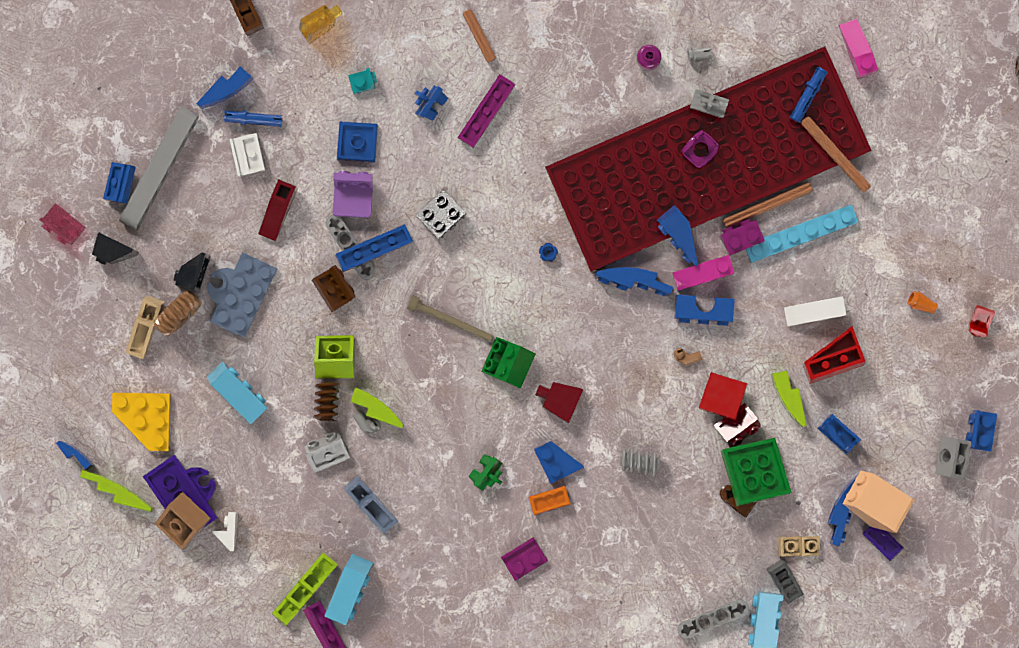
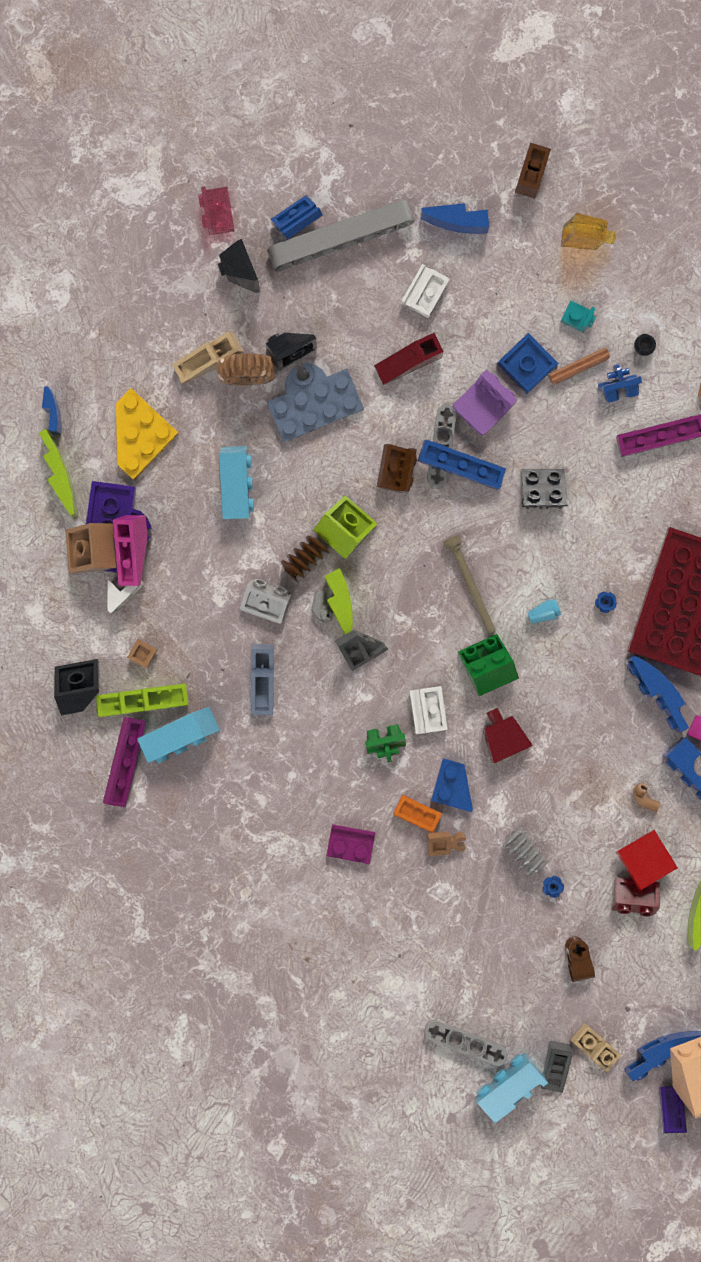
camera: 30 degrees right, 0 degrees up
(208, 497) = (130, 548): none -> dark pink slope
(253, 118) = (455, 262): blue pin -> none
(253, 618) = (76, 685): none -> black slope
(277, 558) = (142, 653): none -> medium nougat plate
(392, 113) = (579, 366): none -> nougat axle
(415, 427) = (359, 648): none -> dark grey wing
(422, 54) = (647, 339): none -> black plate
(496, 427) = (428, 710): none -> white plate
(514, 294) = (545, 611): none -> medium azure cone
(582, 503) = (442, 843): none -> medium nougat plate
(678, 462) = (548, 882): none -> blue plate
(755, 471) = (617, 951): green plate -> none

